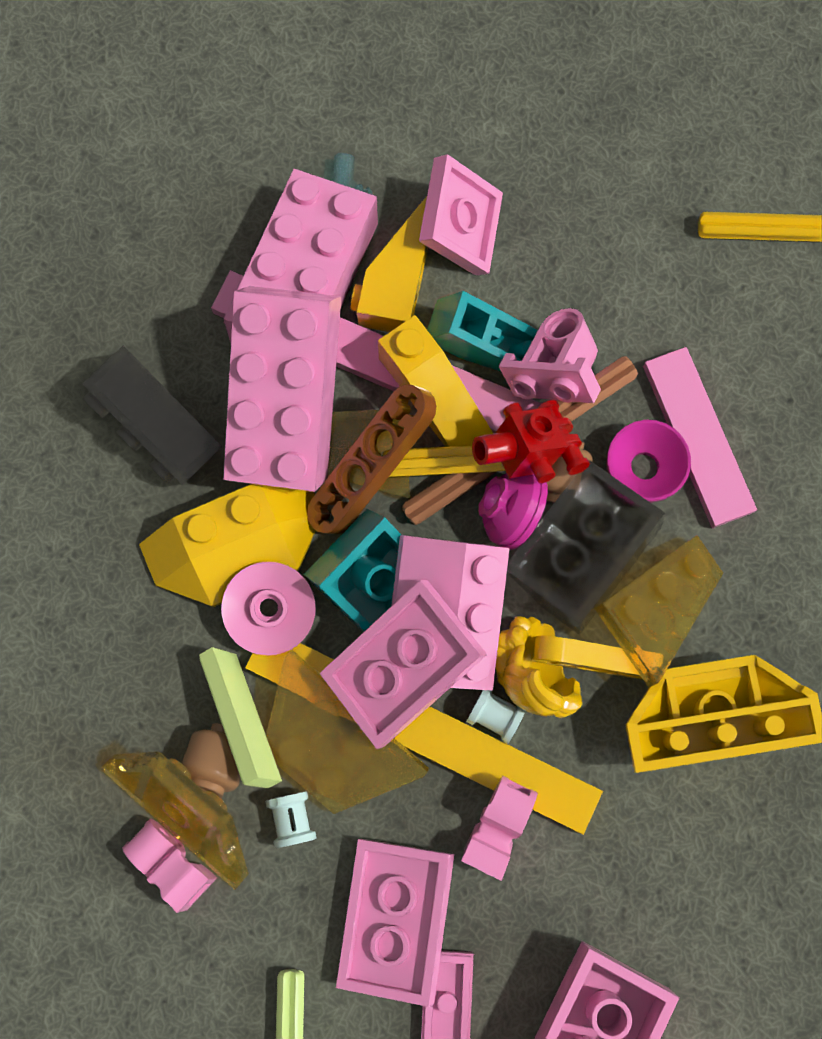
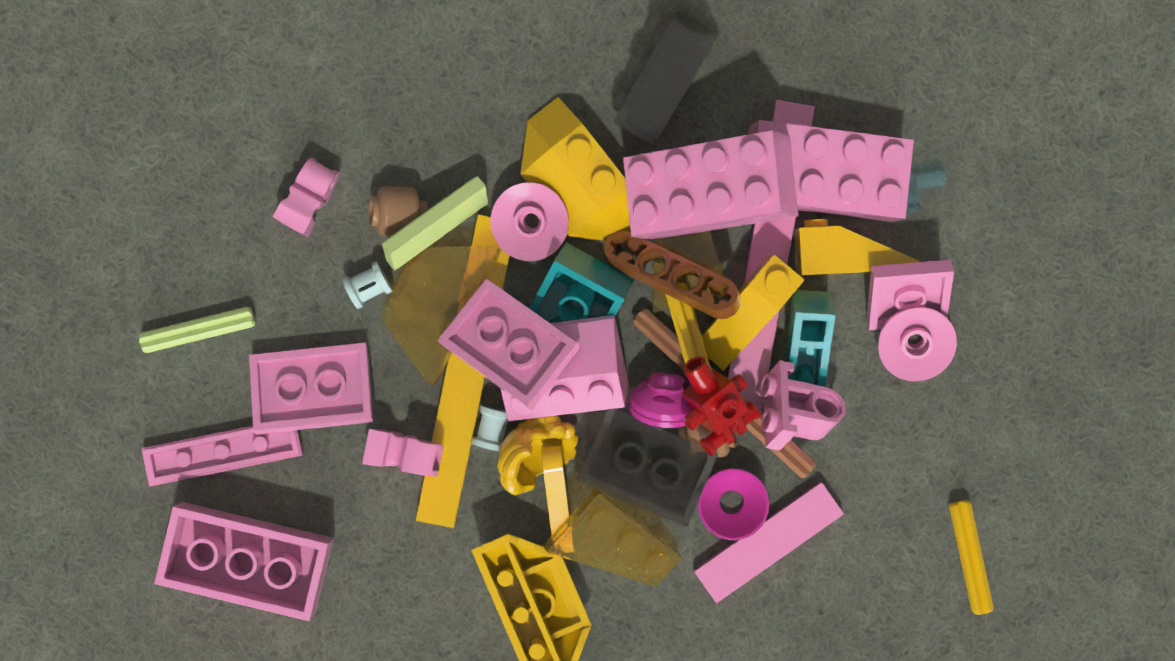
camera: 75 degrees right, 10 degrees up
(182, 808) = (353, 196): clear yellow wing -> none
(528, 212) = (924, 358): none -> bright pink dish

